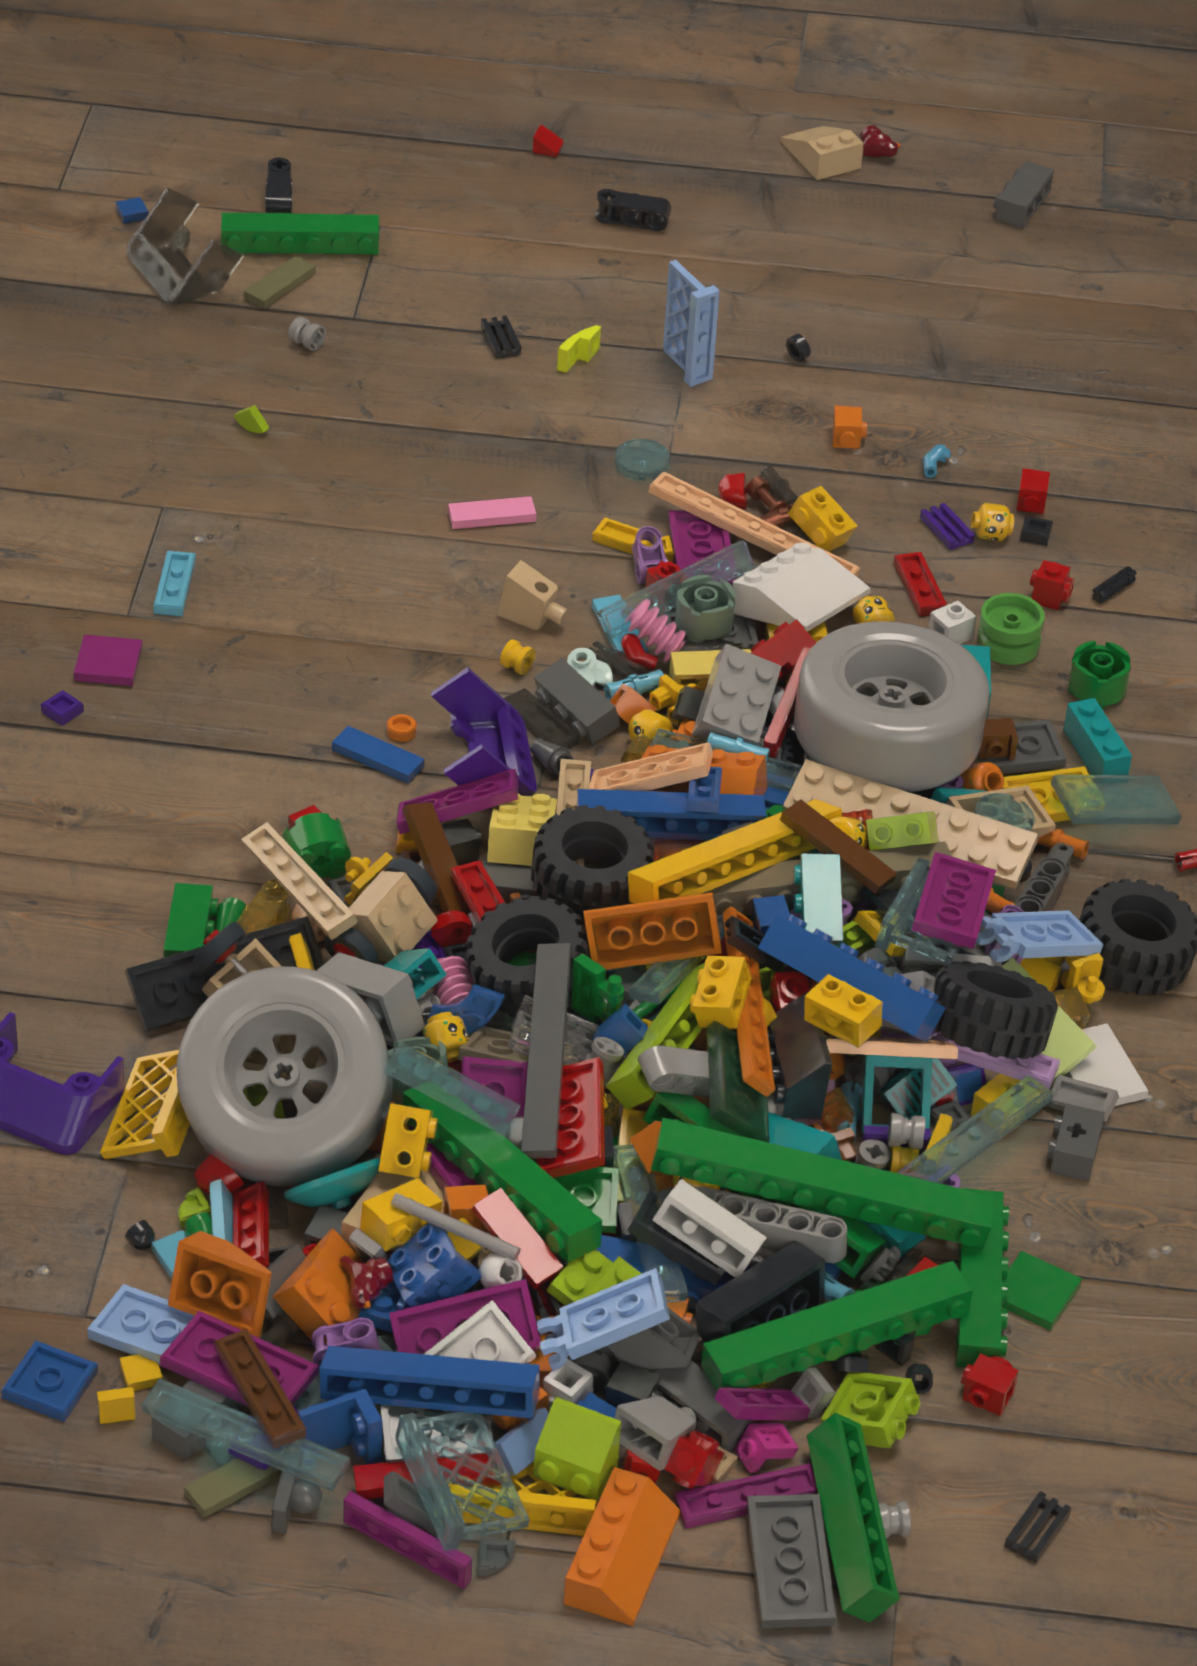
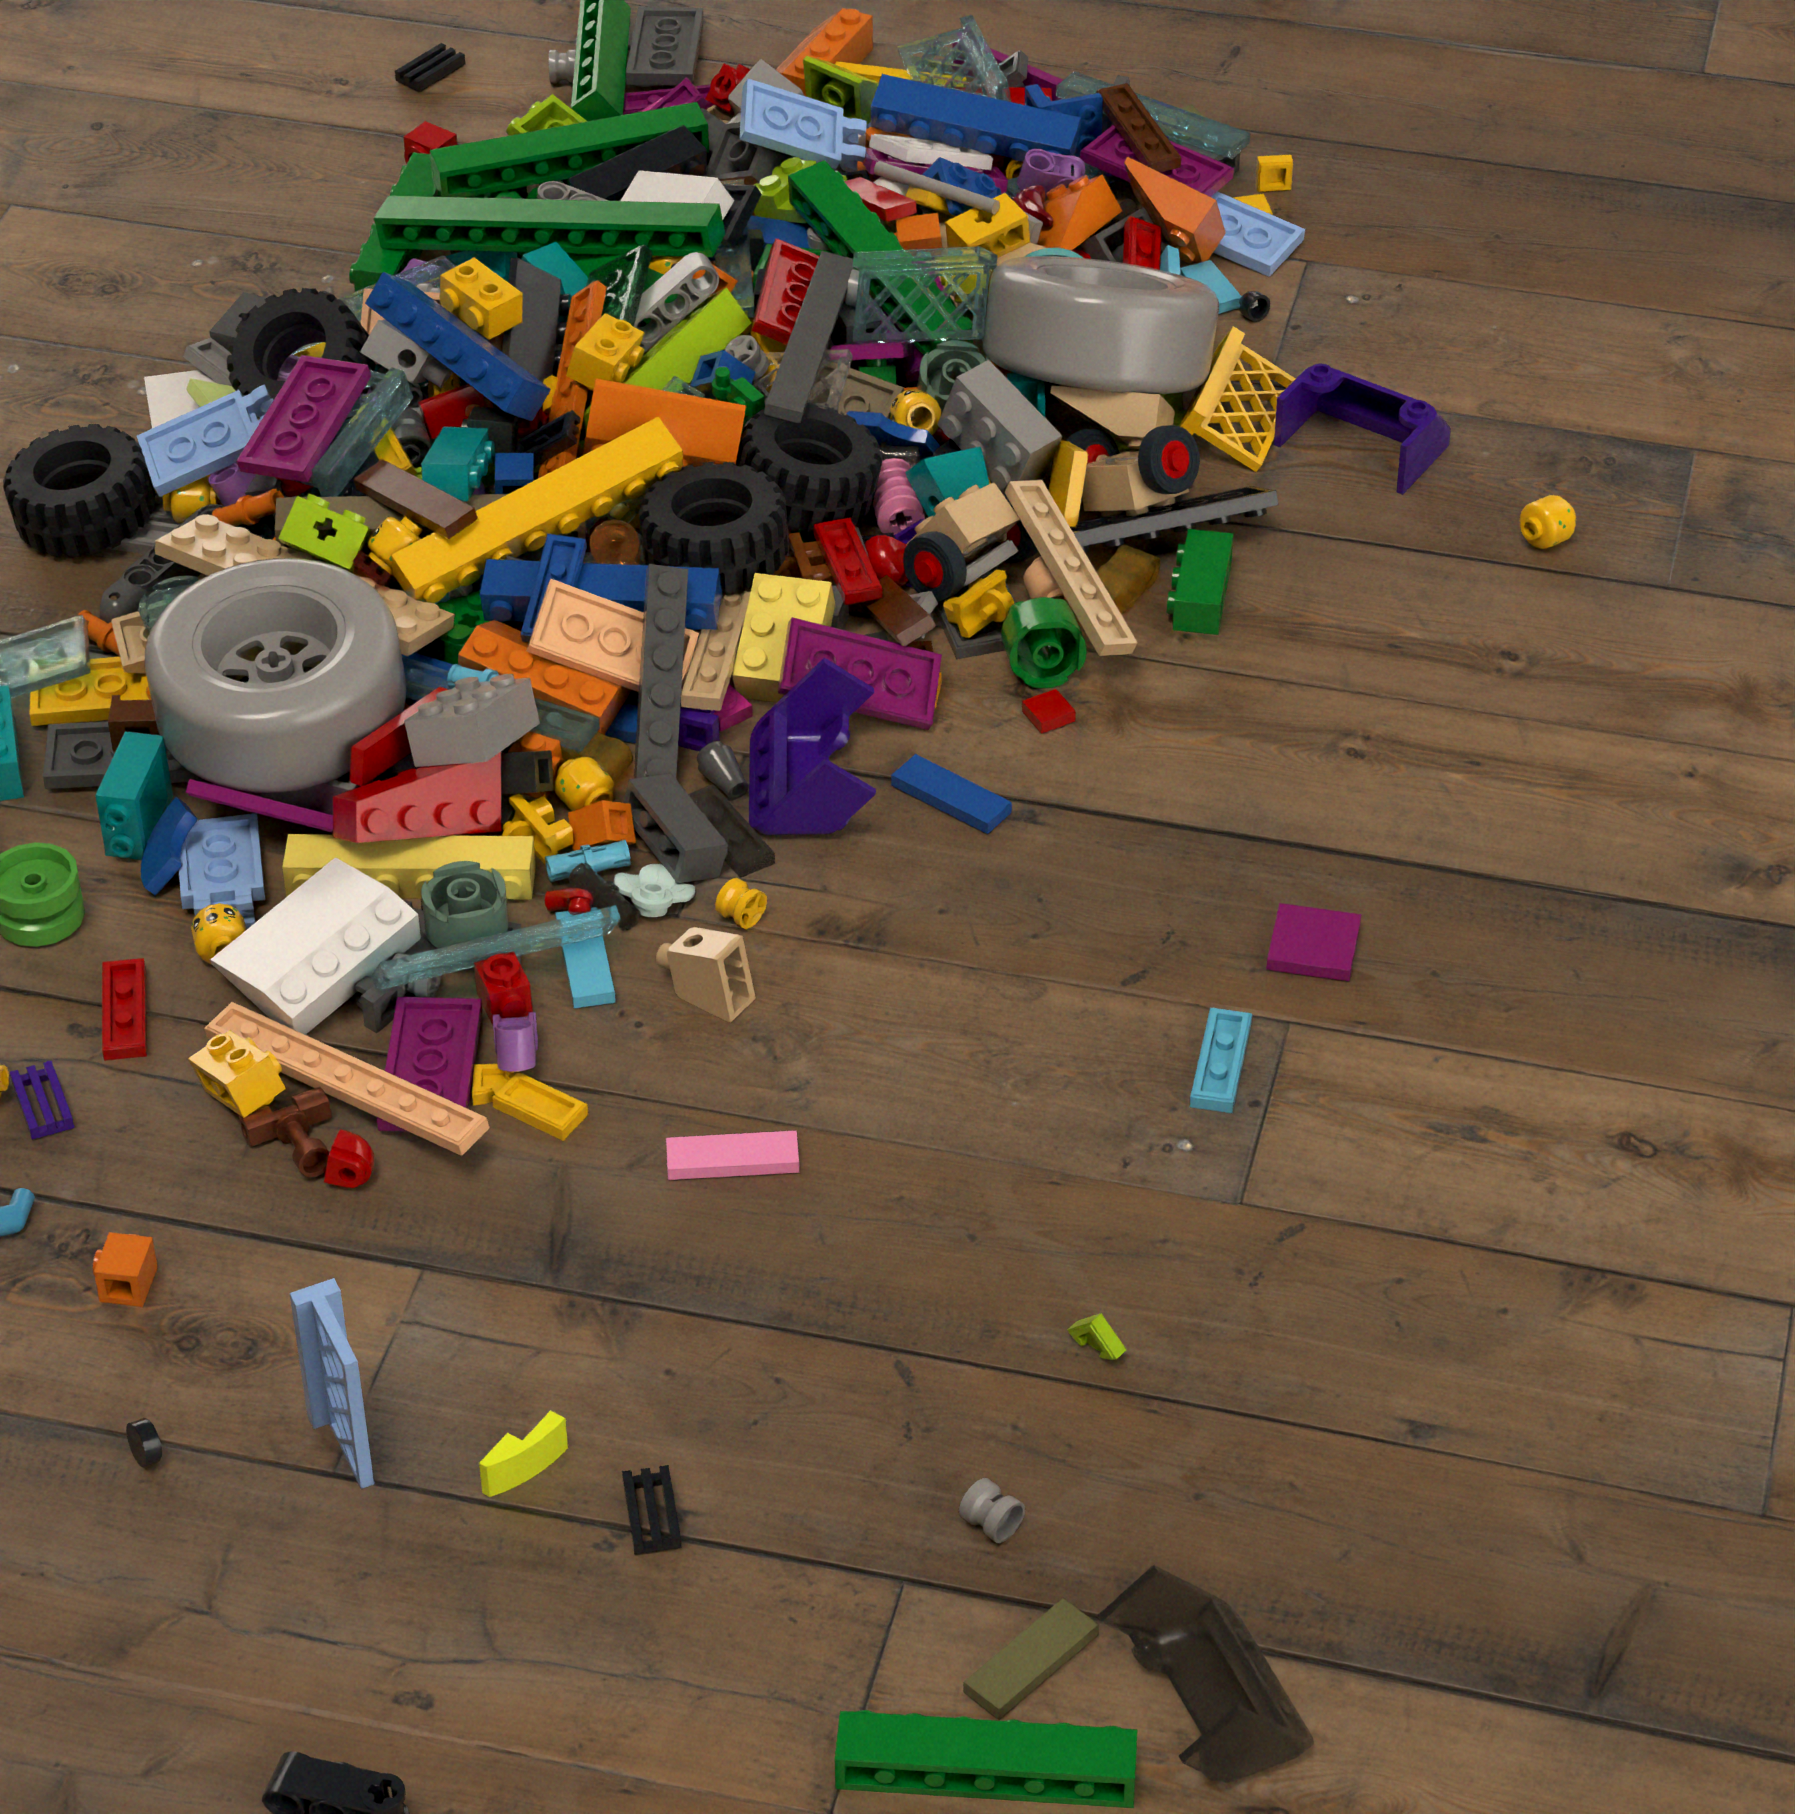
camera: 170 degrees left, 0 degrees up
(49, 1381) = (1339, 208): blue tile -> none
(62, 707) = (1373, 879): dark purple tile -> none
(228, 912) = (1151, 595): green cone -> none
(401, 728) = (915, 830): orange tile -> none
(608, 761) = (661, 671): none -> dark grey plate
(642, 459) = (473, 1242): clear light blue tile -> none
(655, 629) = (544, 896): bright pink piece -> none
(778, 487) = (275, 1165): clear smoke axle -> none
(954, 622) = (110, 922): white brick -> none
(1039, 1290) = (341, 229): green tile -> none

